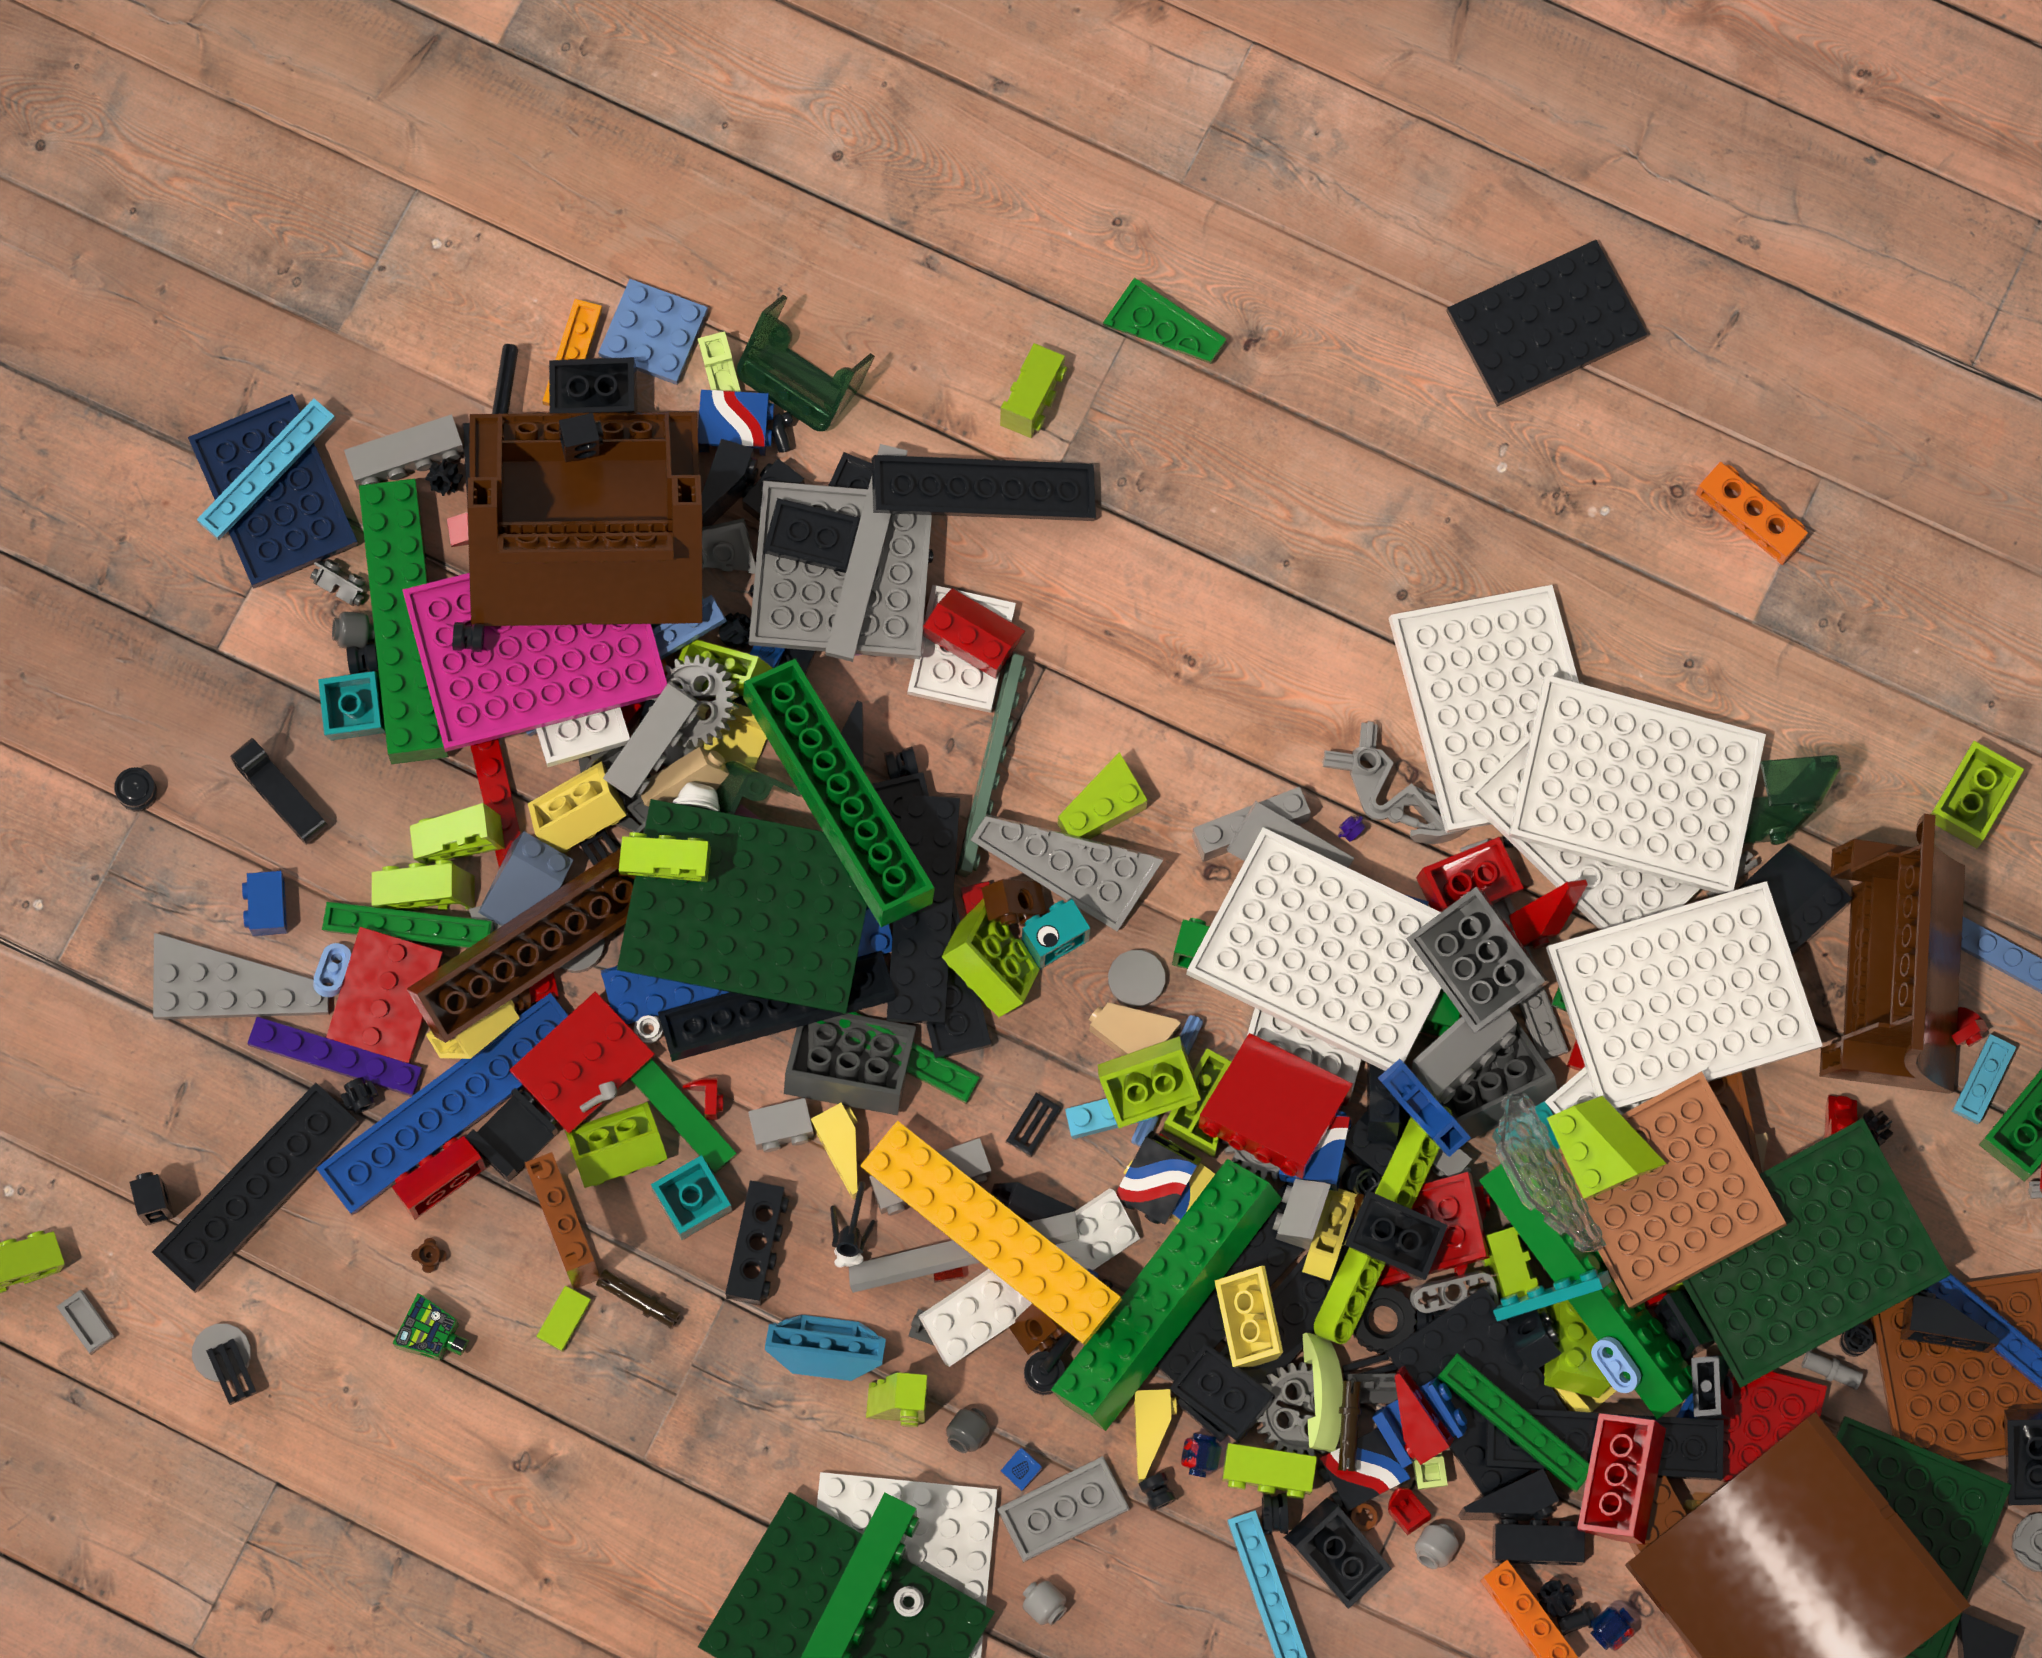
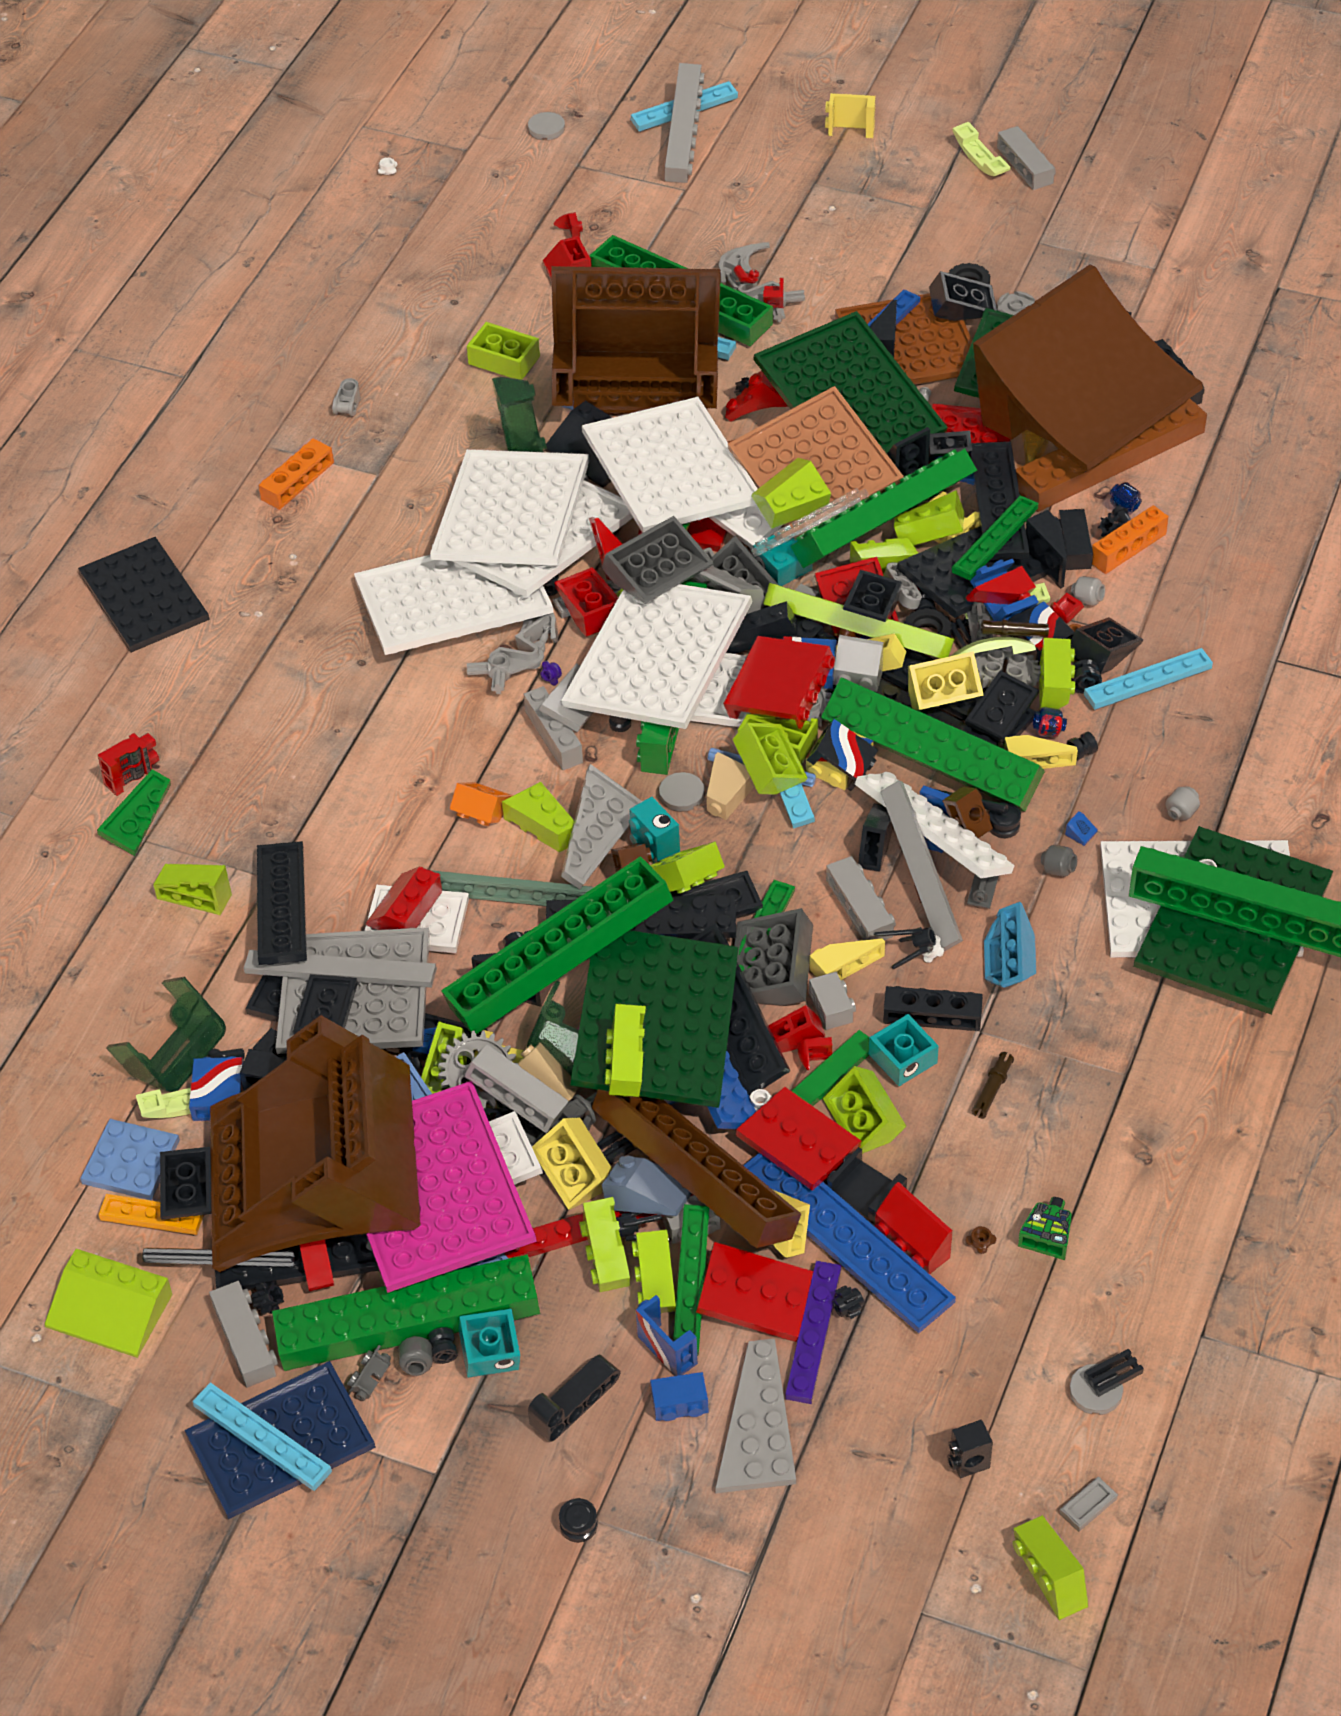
camera: 90 degrees left, 25 degrees down
(255, 1187) = (943, 1377): black plate -> none
(327, 883) = (676, 1355): none -> blue panel
(330, 971) = (740, 1333): light blue plate -> none
(462, 313) = (108, 1303): none -> lime slope
(468, 637) = (431, 1223): black wheel -> none
(485, 865) = (629, 1224): none -> black plant
(562, 1220) = (951, 1138): dark orange window -> none
(563, 1318) = (1018, 1137): lime tile -> none
(580, 437) = (246, 1148): black brick -> none
(608, 1091) = (823, 1110): light grey hand -> none
(698, 796) = (564, 1054): white hat -> none
(737, 1077) = (796, 1027): none -> red slope
(898, 1399) = (1046, 891): lime wedge -> none
(991, 1233) = (905, 838): yellow plate -> none
(1020, 1146) = (806, 848): black tile -> none
(1063, 1509) = (1106, 804): light grey tile -> none
(1139, 731) = (479, 802): none -> orange slope
(1236, 307) = (127, 761): none -> red hips
(1424, 1108) = (780, 580): blue arch -> none
(1534, 1338) = (941, 527): black brick -> none
(1562, 1290) = (902, 514): teal plate -> none
(1614, 1365) = (944, 484): light blue plate -> none
(1621, 1478) = (1025, 475): red slope -> none
(1895, 581) = (347, 397): none -> light grey piece

